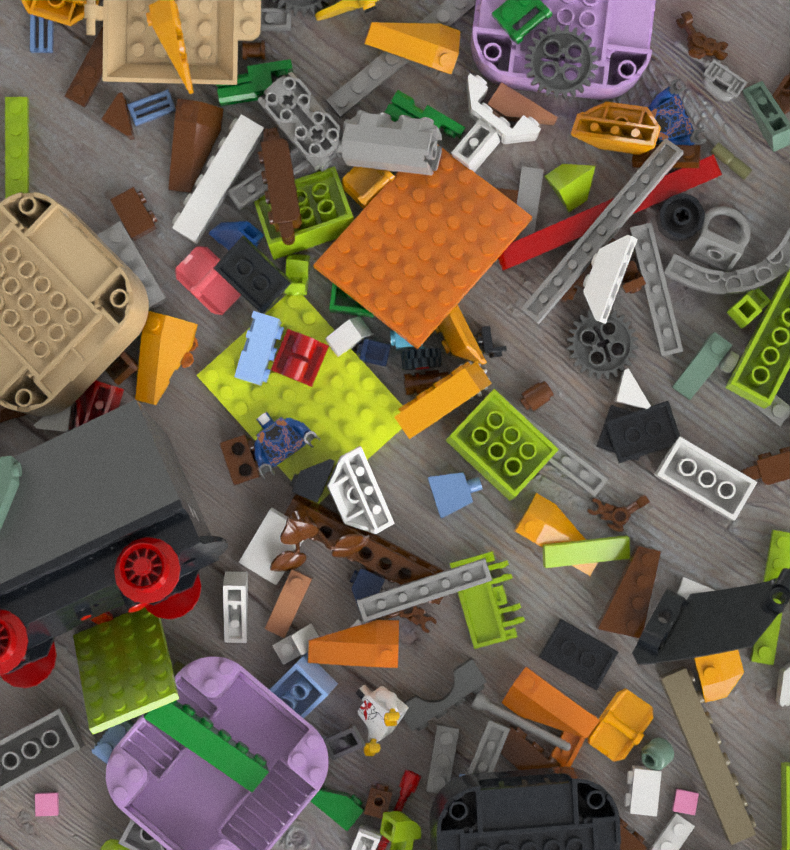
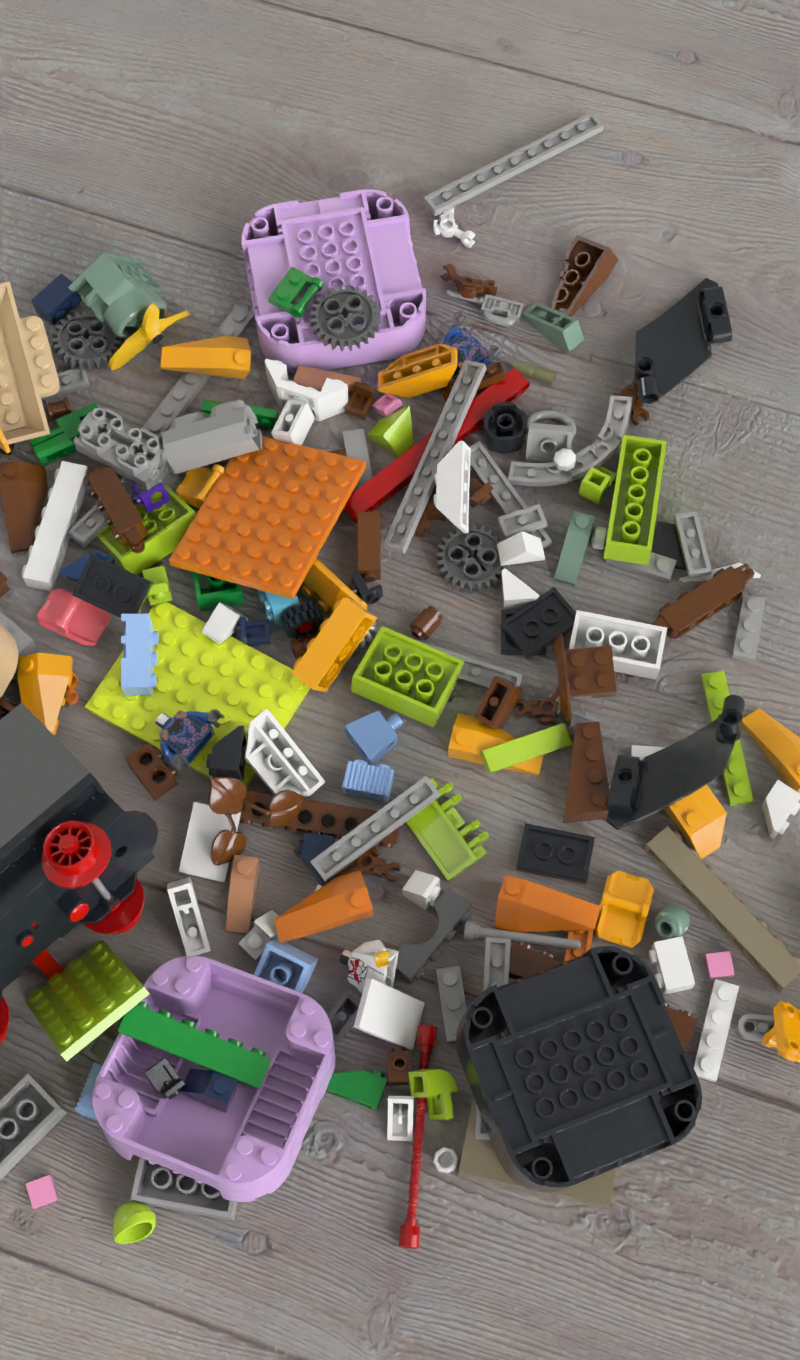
camera: 15 degrees left, 20 degrees down
(173, 758) = (164, 1079): none -> bracket
(209, 776) = (210, 1088): none -> dark blue slope
(300, 357) = (182, 654): red plate -> none
(310, 184) = (145, 497): none -> dark purple bracket
(383, 757) = (389, 1014): none -> white tile
(433, 534) = (368, 780): none -> light blue brick
(448, 653) = (422, 889): none -> white slope
(508, 303) = (369, 545): none -> reddish brown slope
(550, 139) = (360, 400): none -> reddish brown bracket
(574, 151) = (386, 405): none -> bright pink tile
(576, 501) = (498, 702): none -> reddish brown brick
(649, 354) = (520, 549): none -> white slope
(661, 325) = (522, 520): none -> light grey plate
(662, 505) = (583, 674): none -> reddish brown piece
(725, 274) = (564, 459): none -> white tile

